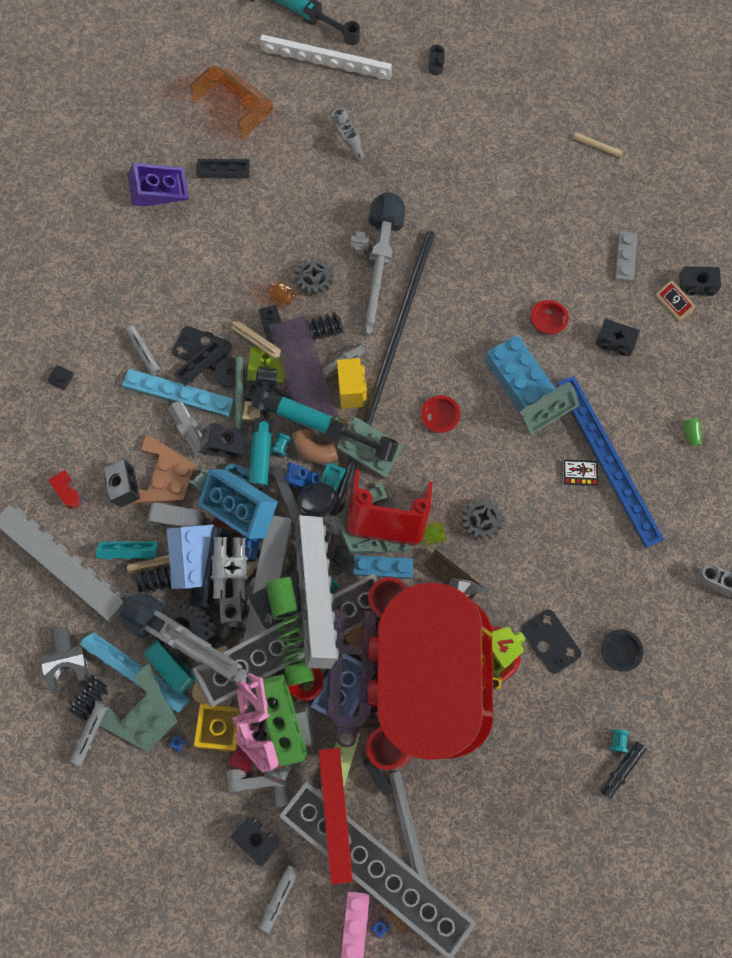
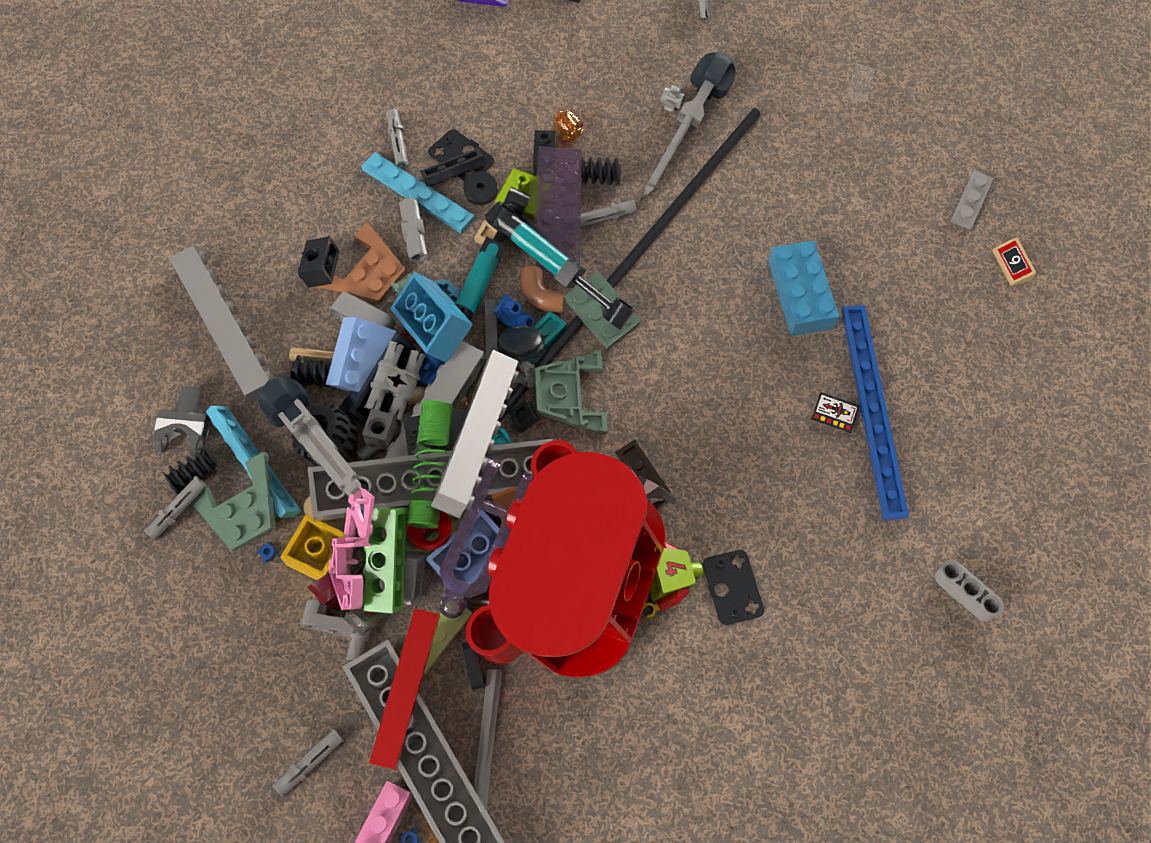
camera: 20 degrees right, 5 degrees down
(60, 377) = (301, 140): black plate -> none
(64, 491) = (256, 250): red leg -> none
(127, 549) = (297, 333): teal plate -> none
(170, 667) = (291, 468): teal beam -> none
(212, 441) = (431, 252): black brick -> none
(239, 393) = (481, 211): sand green bar -> none
(243, 835) = (297, 677): black brick -> none
(256, 339) = (520, 160): tan axle -> none
(280, 444) = (505, 277): teal bush -> none
(305, 278) = (609, 118): dark grey gear -> none
(351, 383) = (606, 235): yellow brick -> none
(383, 566) = (581, 442): dark azure plate -> none
(386, 523) = (589, 391): red windscreen -> none
(435, 534) = (641, 425): clear neon green plate -> none
(444, 414) = (701, 299): red piece -> none
(489, 522) = (704, 435): dark grey gear -> none
(549, 323) = (855, 243): red piece -> none
(550, 408) = (822, 327): sand green plate -> none
(598, 145) = (980, 75): tan bar -> none
(618, 776) = (760, 766): black pin -> none
(622, 650) = (813, 624): black piece -> none
(622, 736) = (773, 727): teal bush -> none
(626, 337) = (930, 280): black brick -> none
(692, 430) = (985, 408): bright green cone -> none
(708, 276) = (1051, 248): black brick -> none

